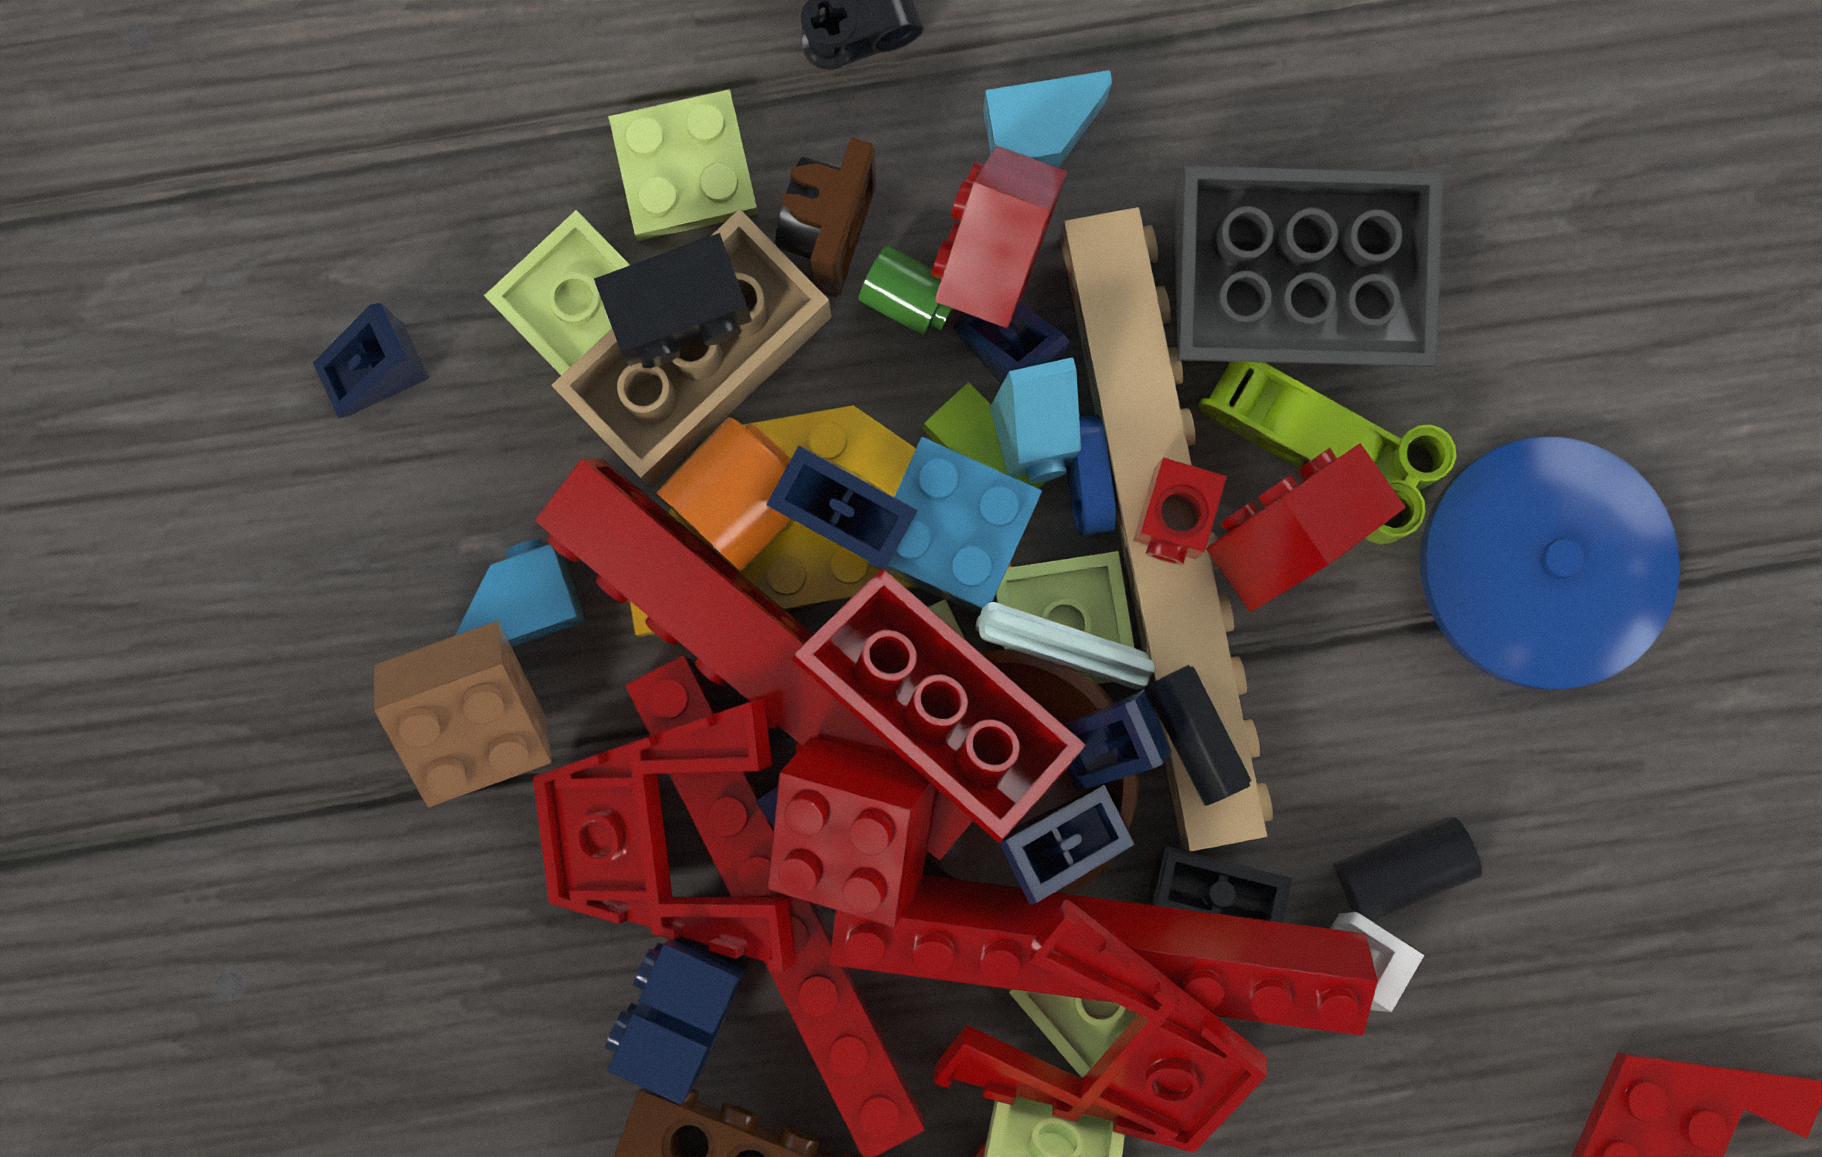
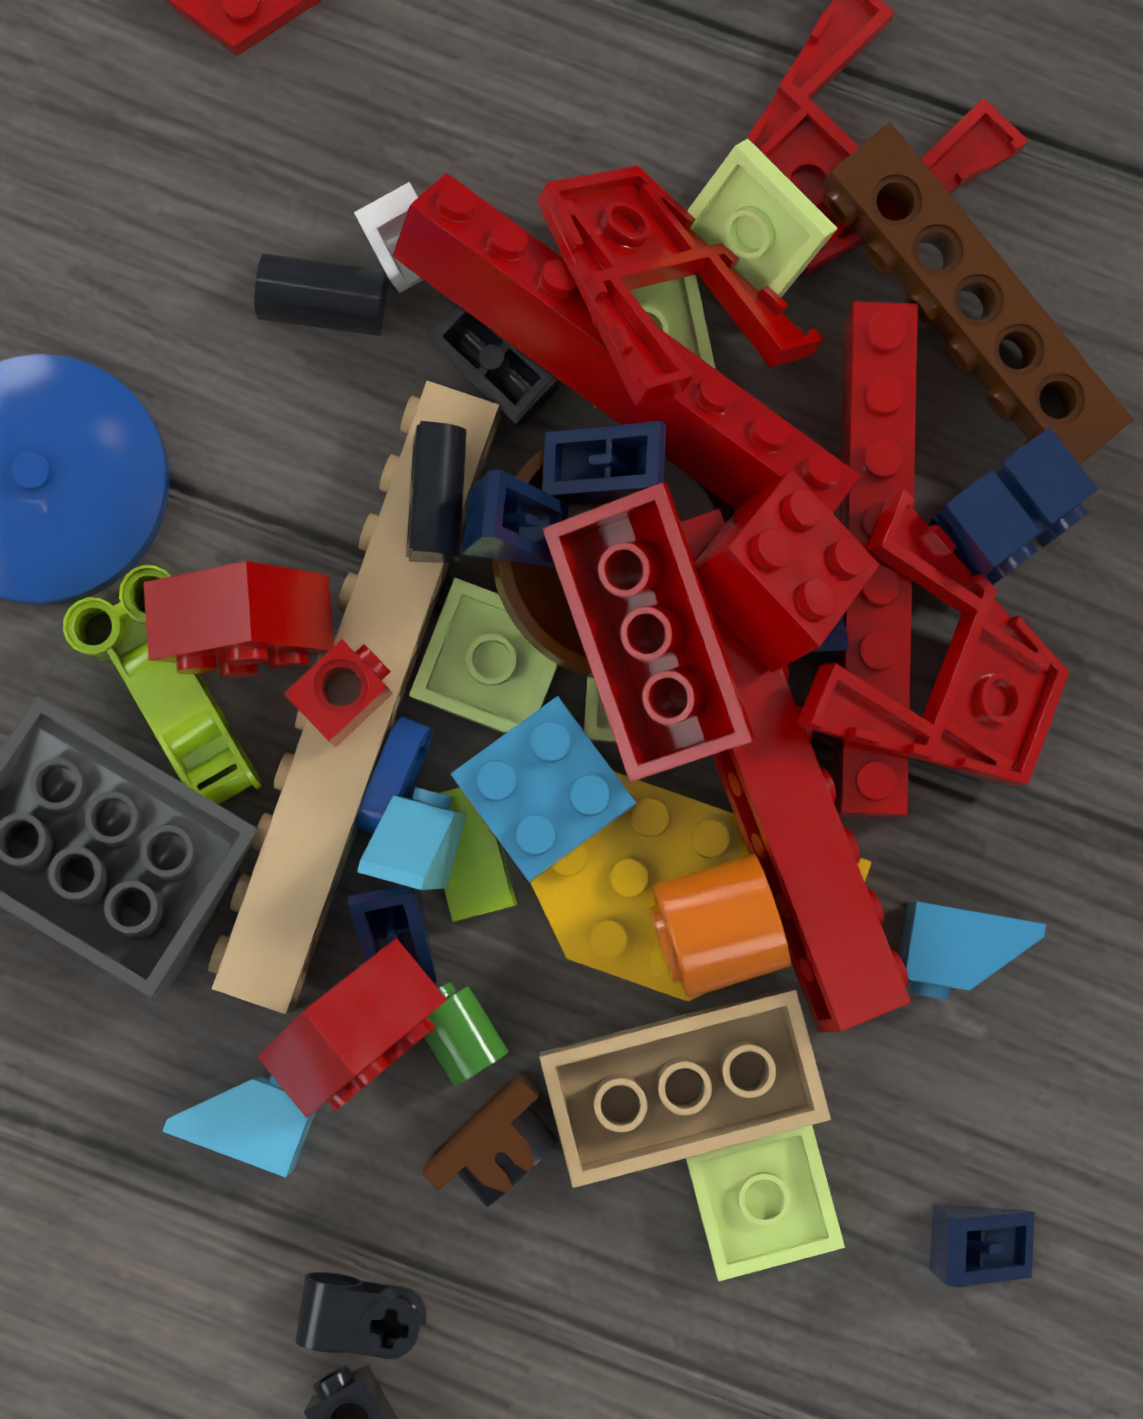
camera: 150 degrees left, 0 degrees up
(461, 714) = (1063, 871): medium nougat brick -> none
(674, 302) = (682, 1127): black brick -> none
(682, 165) = (596, 1272): yellowish green plate -> none
(842, 506) = (634, 854): dark blue slope -> none
(1064, 645) = (507, 632): light aqua axle -> none

